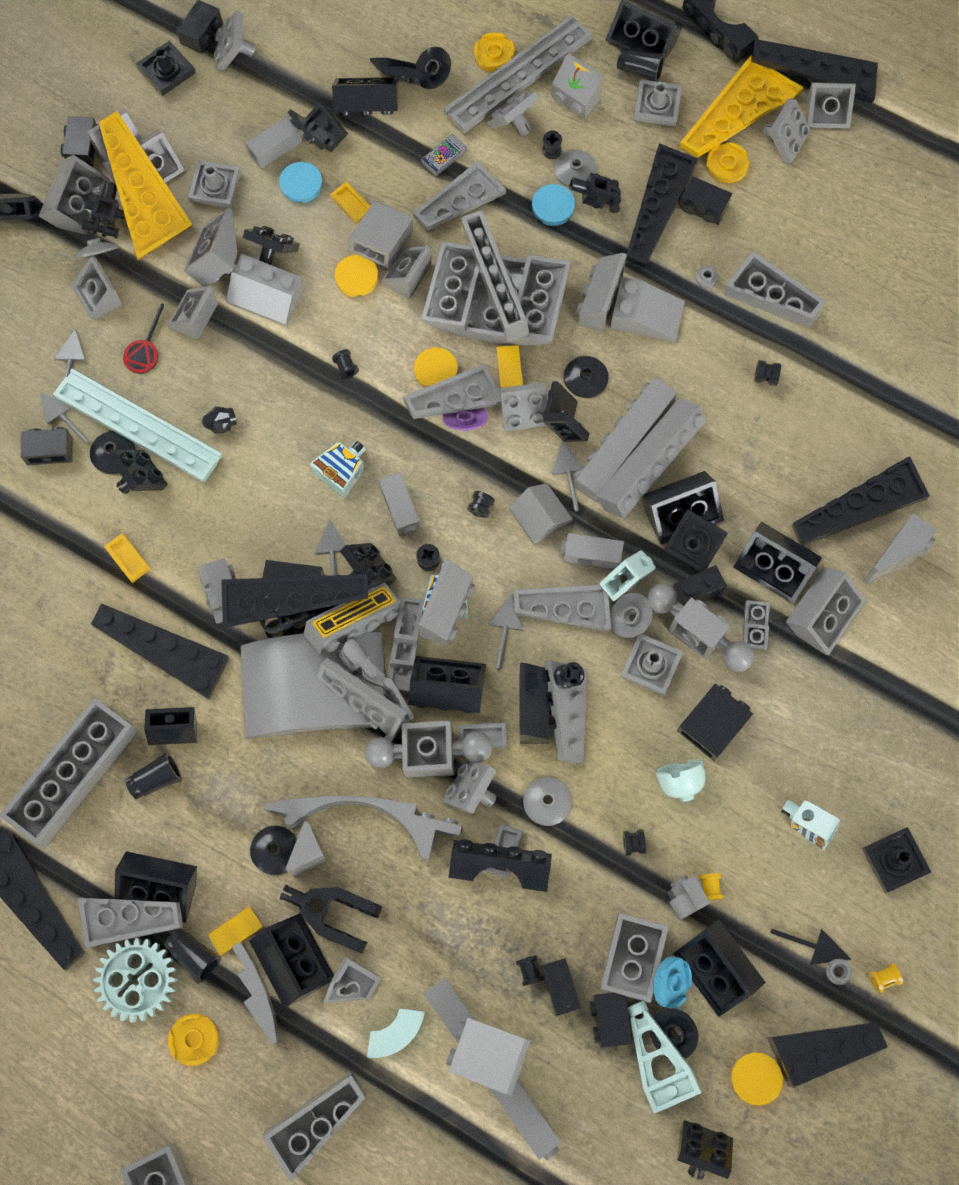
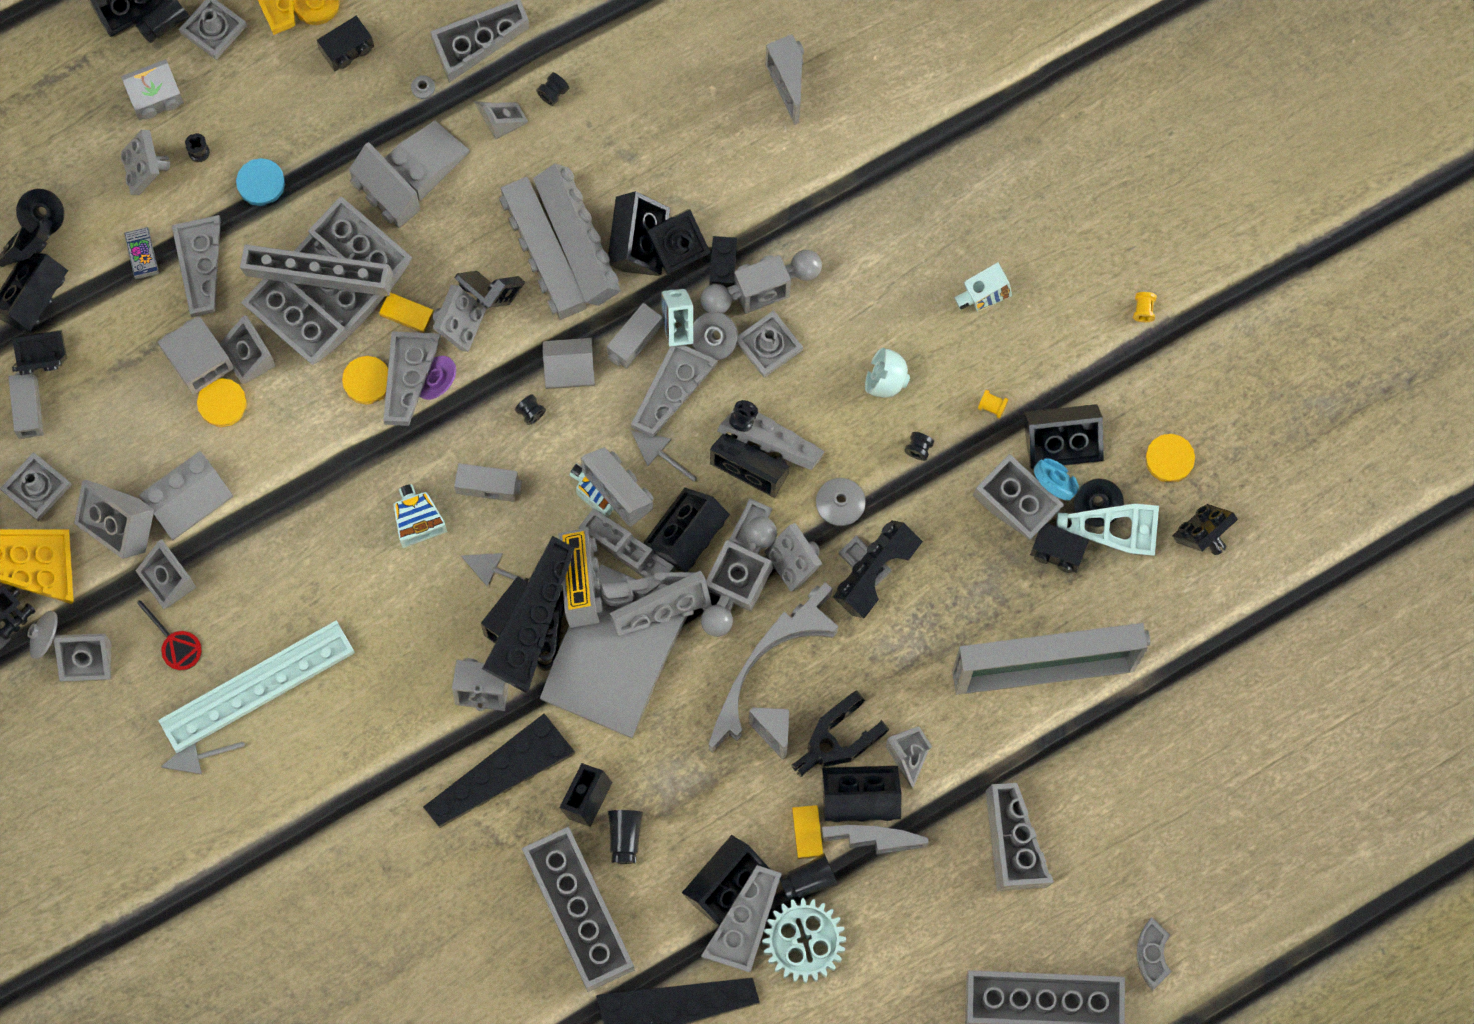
camera: 65 degrees left, 0 degrees up
(46, 446) = (227, 783): brick -> none
(70, 351) = (134, 714): light grey piece -> none
(99, 448) = (277, 734): black dish -> none
(127, 557) = (389, 762): yellow tile -> none
(137, 471) = (310, 706): black plate -> none
(193, 1039) = (884, 916): yellow tile -> none
(219, 419) = (299, 604): black rock -> none
(259, 850) = (751, 775): black dish -> none
(271, 242) = (141, 462): black plate -> none
(300, 182) = (85, 403): medium azure tile -> none
(345, 364) = (312, 459): black bush -> none
(350, 202) = (139, 366): yellow tile -> none
(366, 559) = (531, 540): black plate -> none
(396, 1035) = (975, 737): light aqua tile -> none
(430, 562) = (554, 490): black wheel -> none
(488, 1056) = (1046, 638): light grey slope -> none
(493, 51) = (56, 146): yellow tile -> none
(517, 74) = (97, 137): light grey plate -> none
(529, 970) = (981, 594): black bush -> none
(560, 987) = (1010, 575): black brick -> none
(565, 167) = (235, 150): light grey dish -> none
(567, 463) = (533, 312): light grey piece -> none
(583, 385) = (456, 260): black dish -> none
(598, 191) = (276, 133): black piece -> none
(663, 191) = (310, 75): black wing -> none
(687, 896) = (992, 425): light grey hinge -> none
(715, 721) = (851, 319): black brick -> none
(718, 348) = (501, 117): none -> light grey slope
(756, 624) = (782, 236): light grey slope -> none
(777, 562) = (737, 184): black slope -> none
(821, 1051) = (1176, 393): black wedge -> none
(825, 948) = (1095, 342): black piece -> none
(826, 610) = (804, 169): light grey slope -> none
(846, 971) = (1119, 335): light grey plate -> none
(878, 496) = (725, 65): black wing -> none
(896, 860) = (1053, 241): black plate -> none

